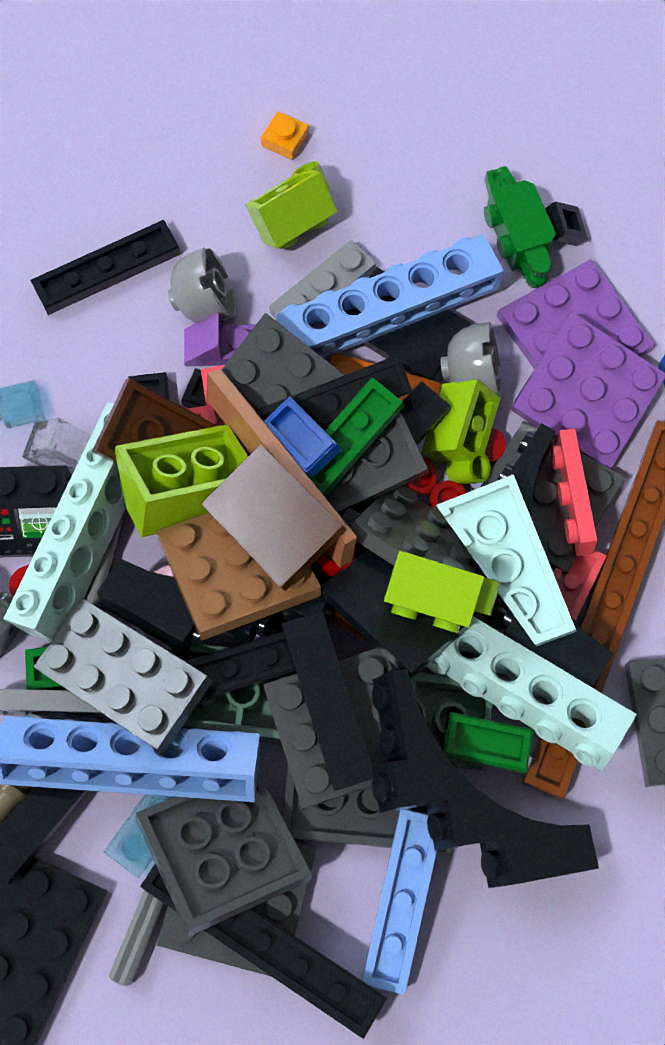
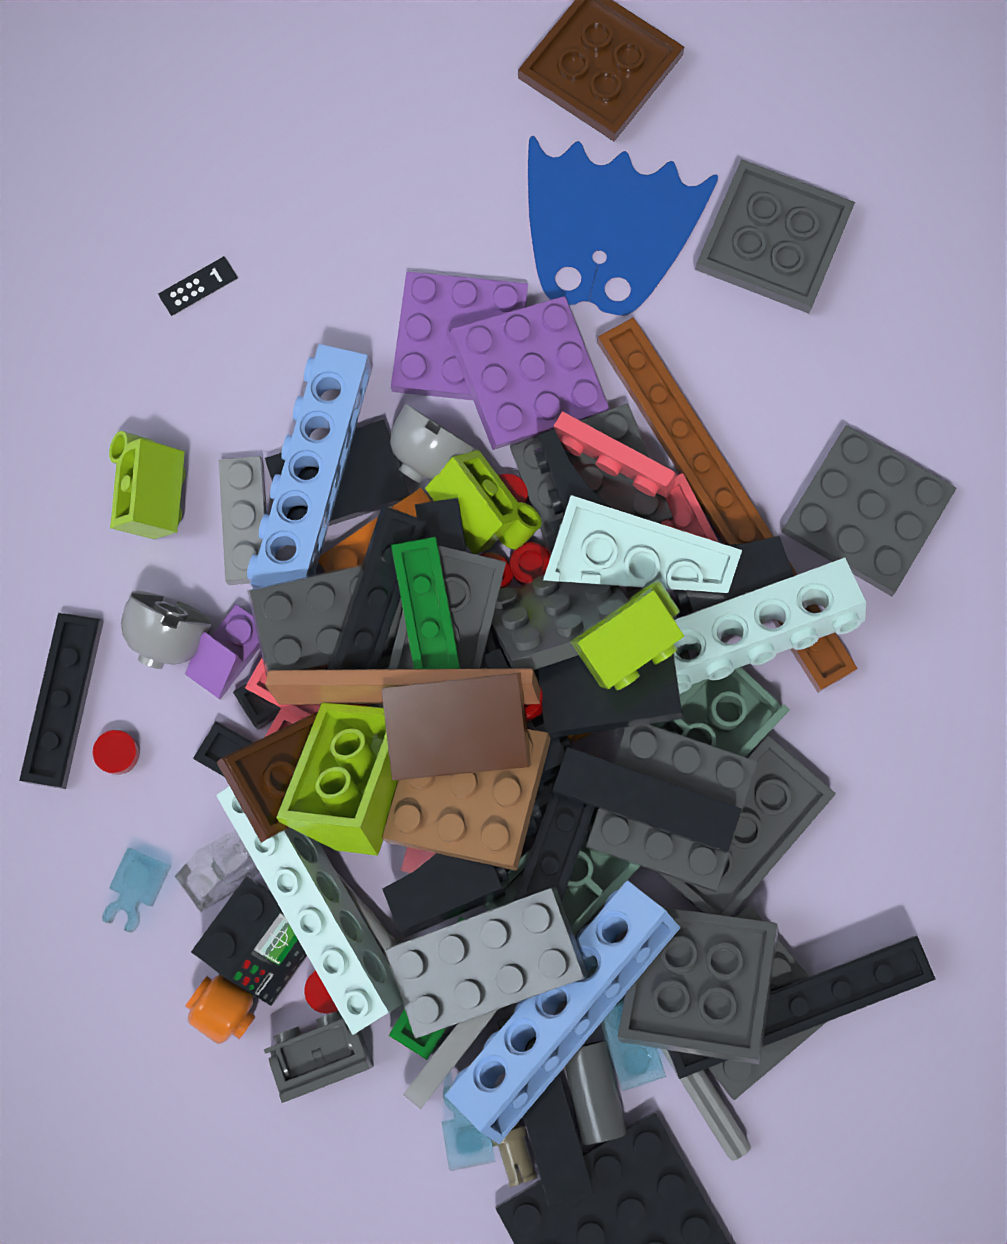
camera: 50 degrees left, 5 degrees up
(87, 832) = (595, 1094): none -> dark grey pin
(95, 326) = (115, 752): none -> red tile
(284, 135) = (60, 439): light orange plate -> none
(302, 437) = (395, 647): blue tile -> none
(400, 904) = (846, 863): light blue plate -> none
(458, 813) = (819, 763): black arch -> none
(463, 140) = (197, 286): none -> black sticker
(487, 742) = (772, 695): green tile -> none
(520, 225) = (325, 304): green hinge -> none
(567, 223) = (356, 266): black plate -> none

